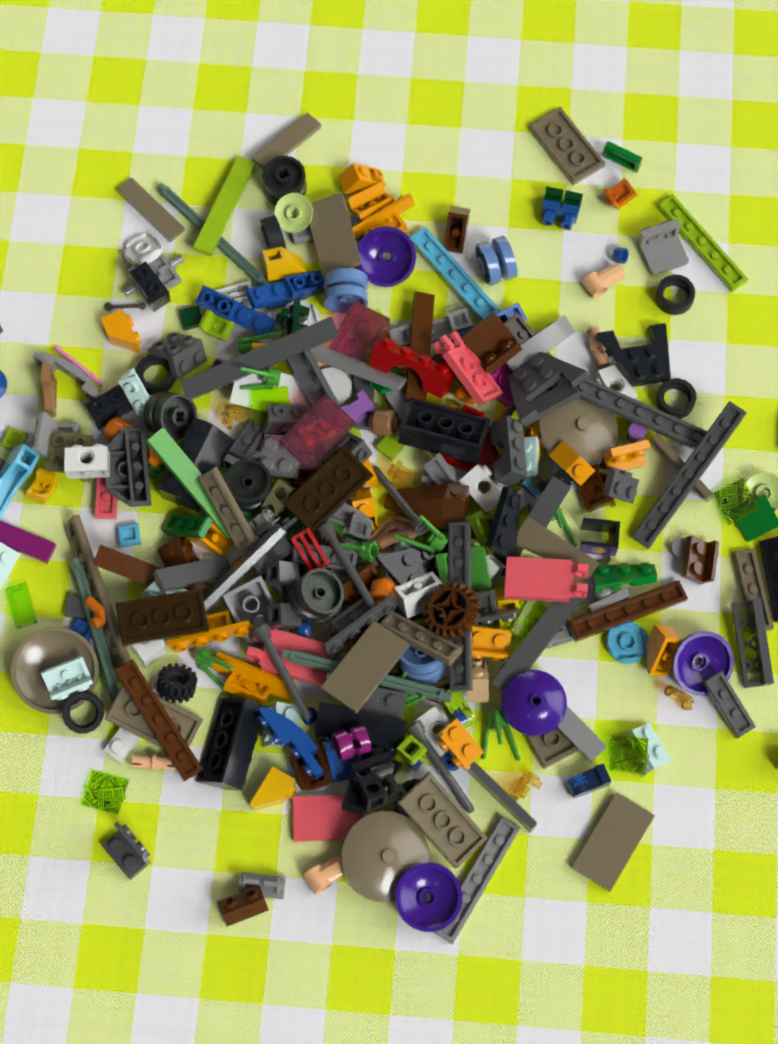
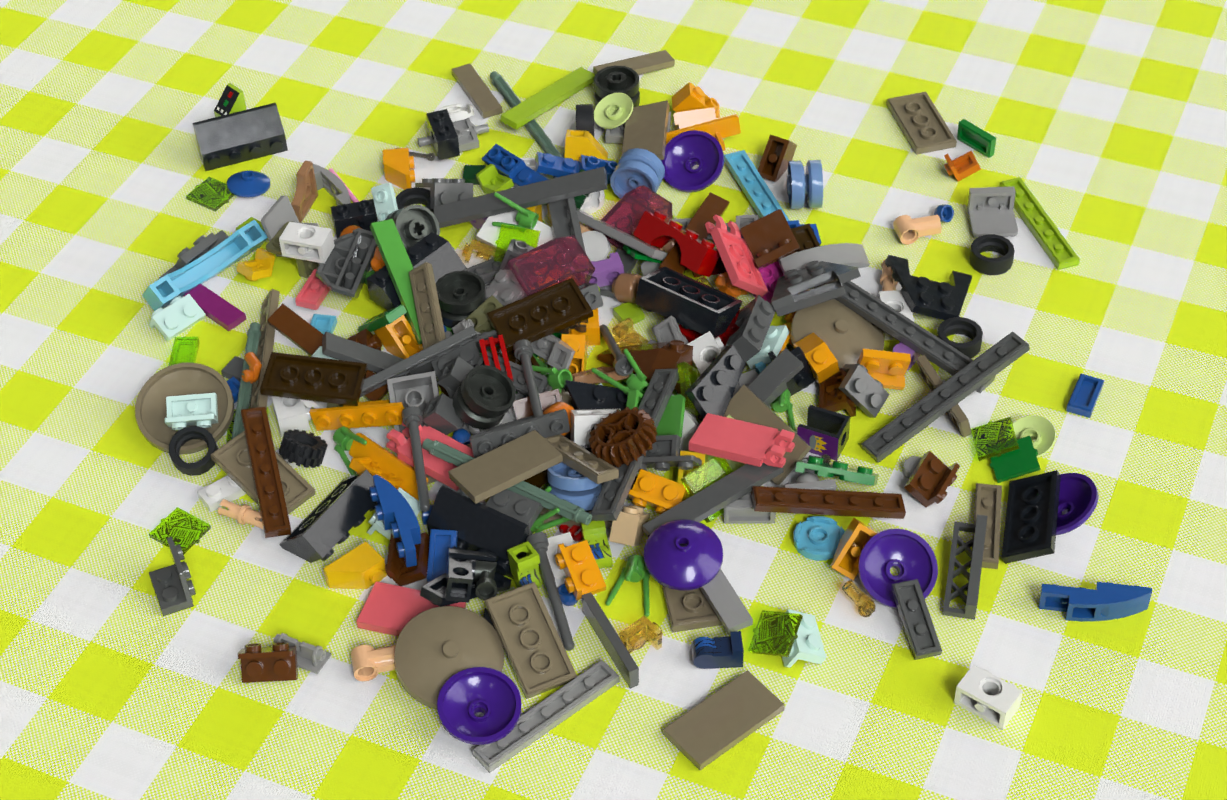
camera: 20 degrees right, 25 degrees down
(346, 748) = (448, 529): magenta wheel -> none
(552, 207) = (895, 163): blue hips -> none

